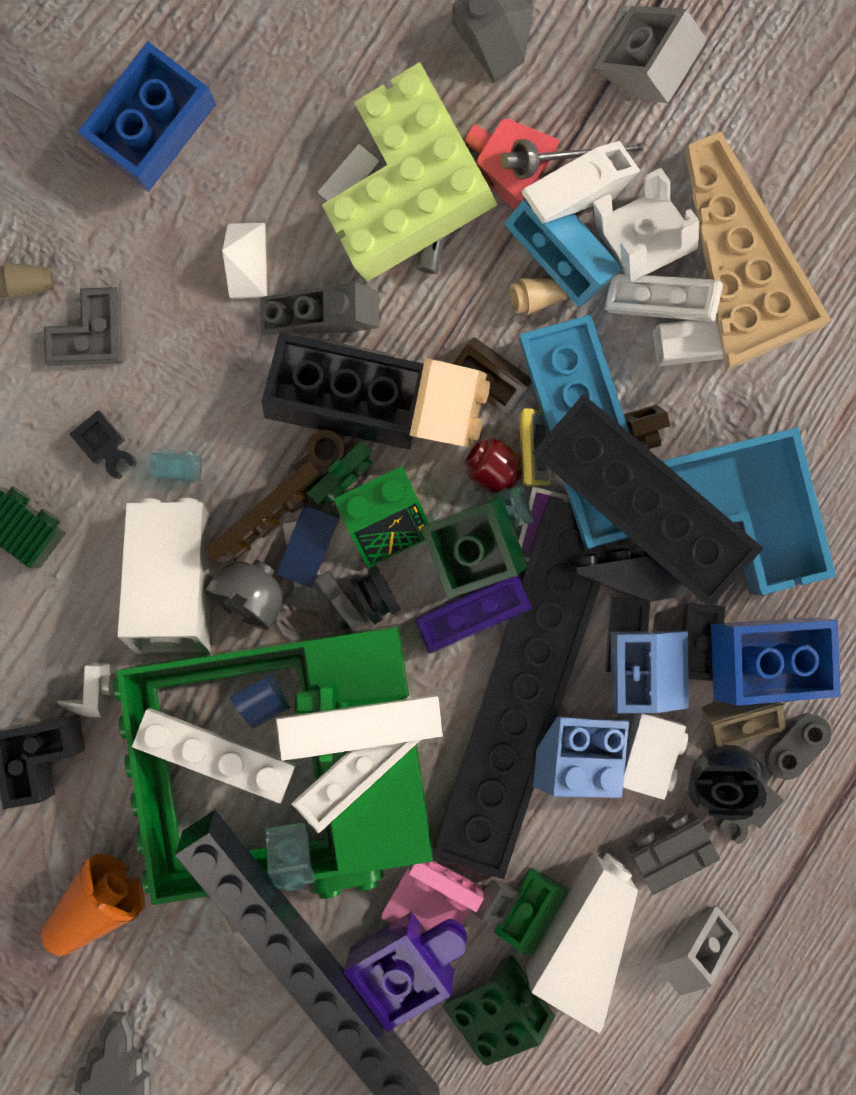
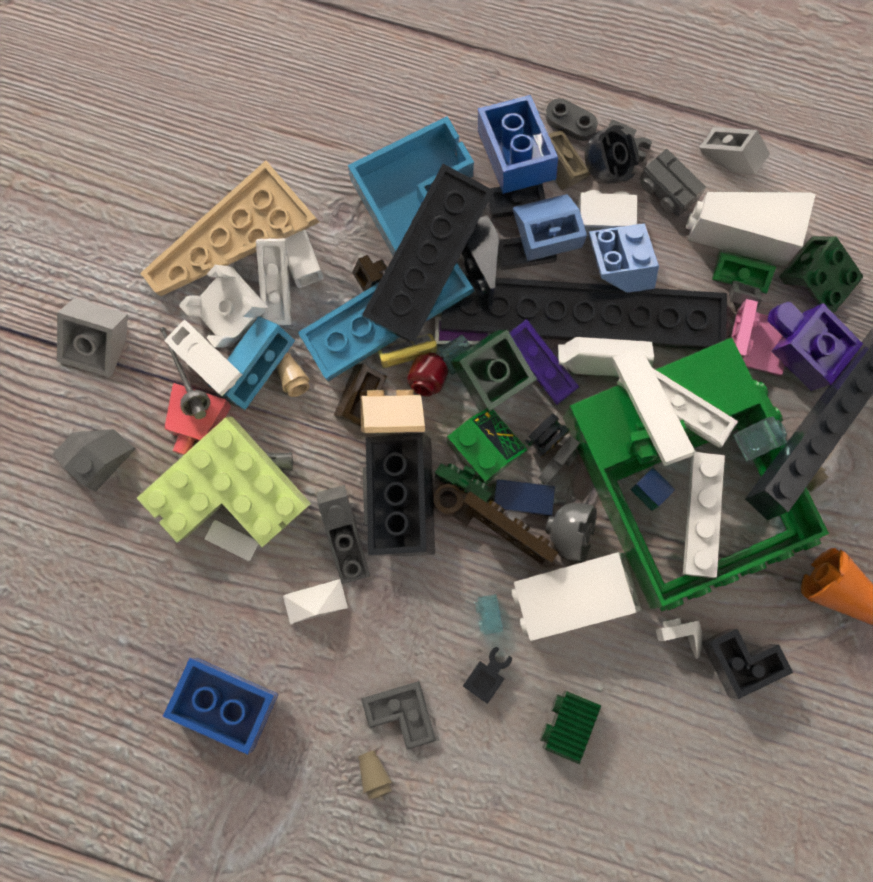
camera: 105 degrees left, 10 degrees down
(460, 696) = (596, 355): none -> white piece

